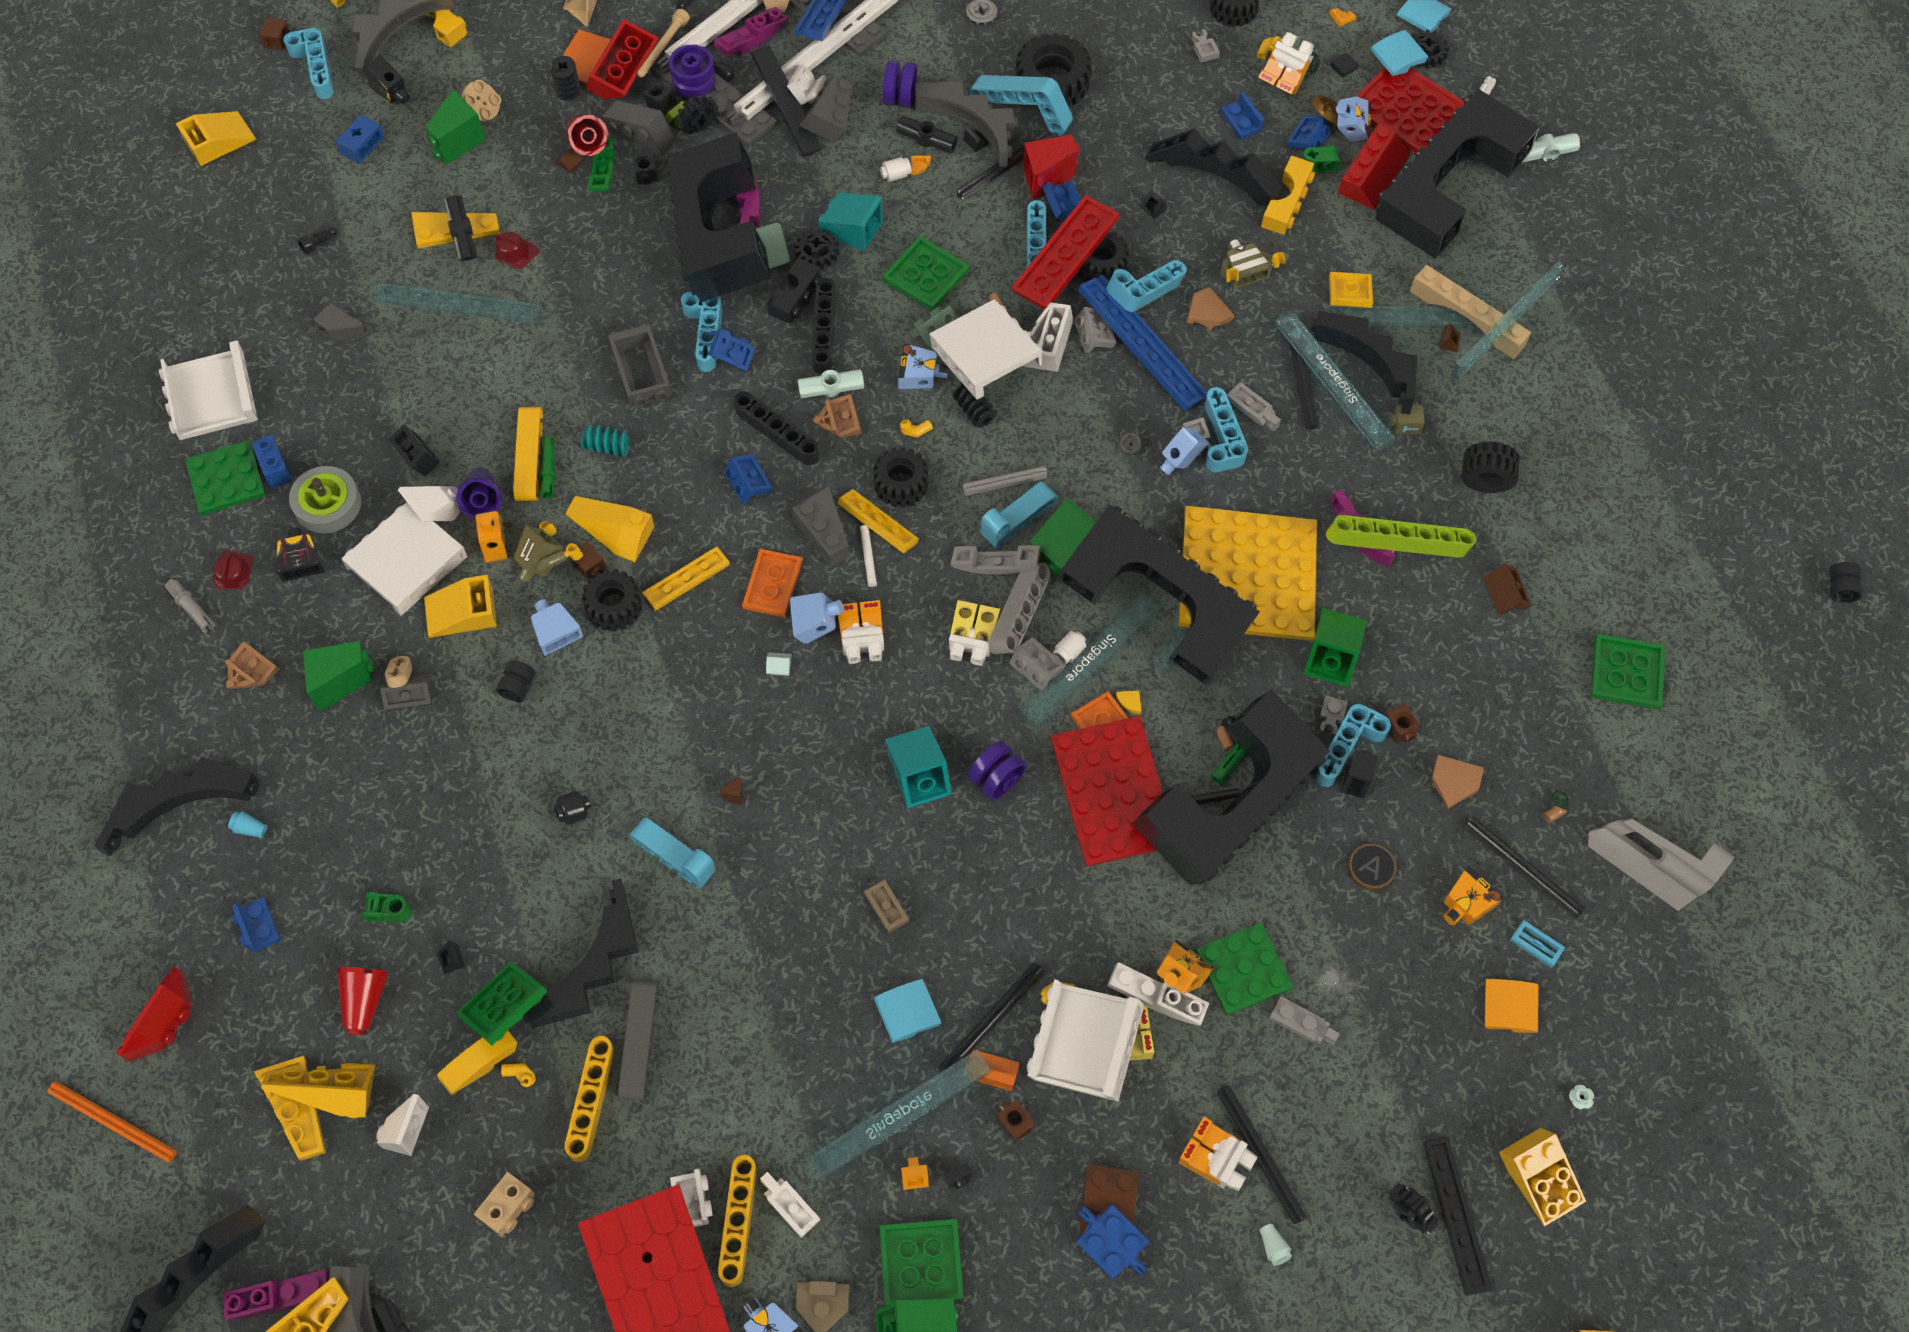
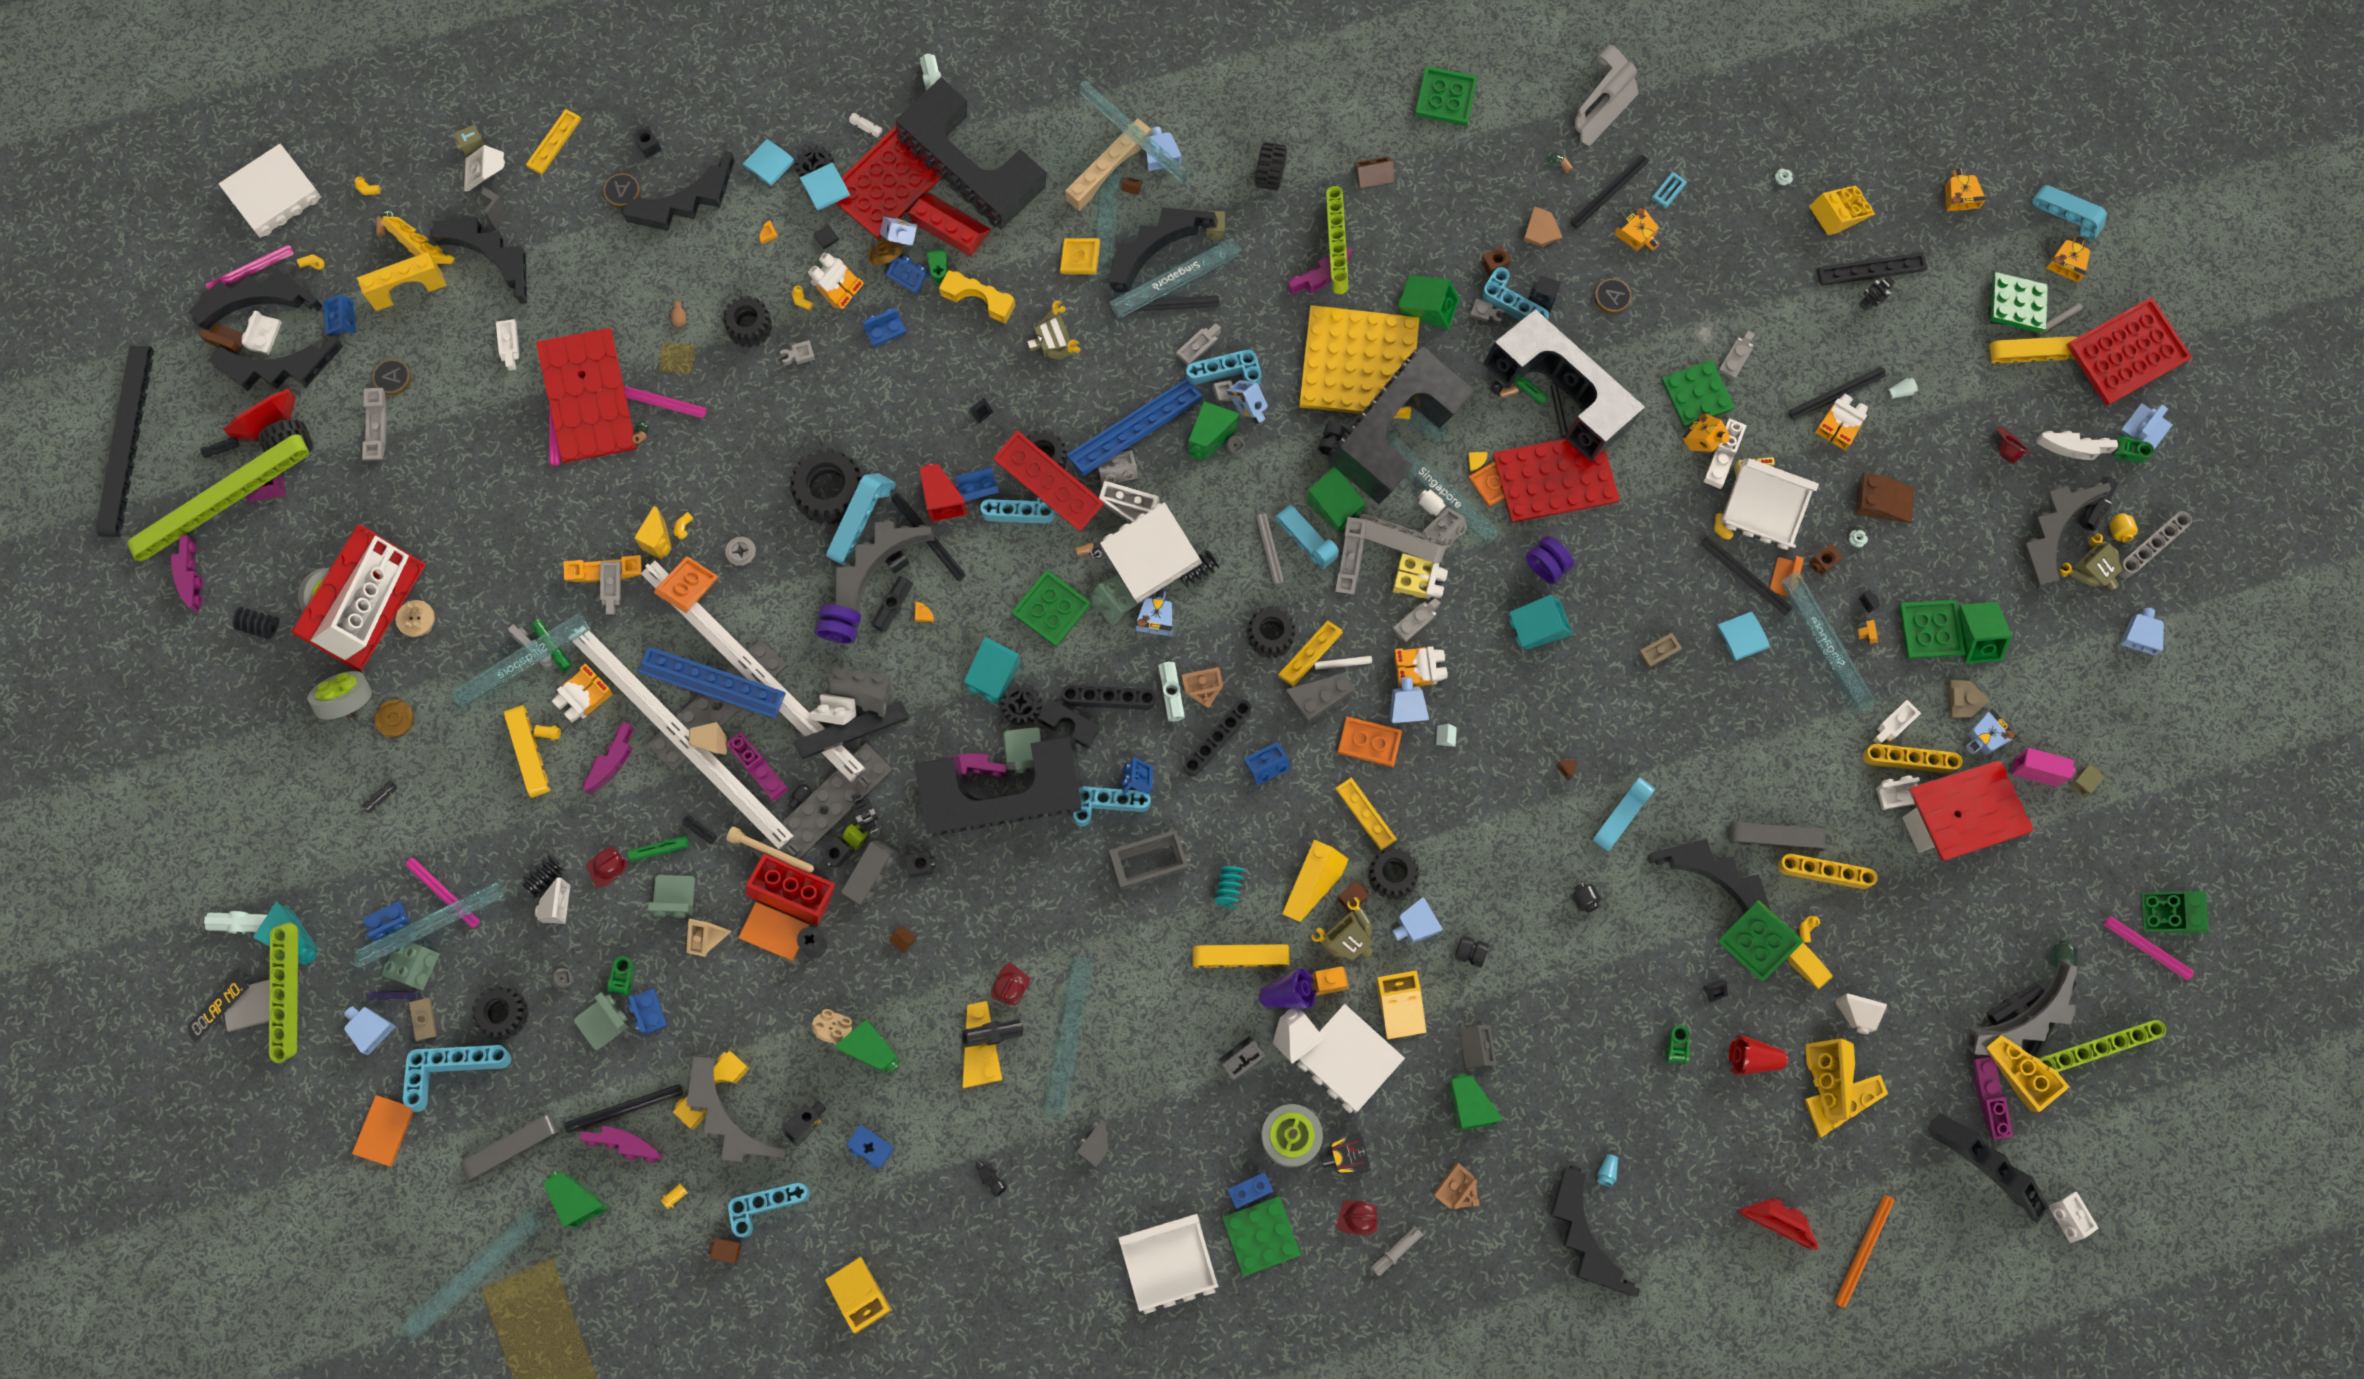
camera: 90 degrees left, 10 degrees up
(256, 925) = (1695, 1152): blue bracket -> none
(398, 671) = (1465, 1056): tan beam -> none
(505, 1204) = (1912, 931): tan brick -> none
(547, 473) = (1259, 938): green pin -> none
(587, 134) = (885, 918): red cone -> none
(603, 168) = (916, 905): green slope -> none
(692, 70) = (804, 809): dark purple wheel -> none
(895, 169) = (932, 632): white brick -> none
(913, 430) = (1218, 621): yellow arm -> none
(921, 632) = (1416, 620): none -> light grey hinge
(1045, 1174) = (1853, 538): none -> light aqua plate
(1112, 1240) = (1910, 496): blue plate -> none
(1136, 294) = (1089, 425): medium azure beam -> none
(1140, 410) = (1211, 430): none -> green slope
(1193, 151) = (948, 345): black arch -> none
(1208, 309) = (1097, 373): medium nougat slope -> none
(1499, 365) = (1167, 143): none -> light blue torso
(1511, 1005) = (1719, 213): light orange slope -> none

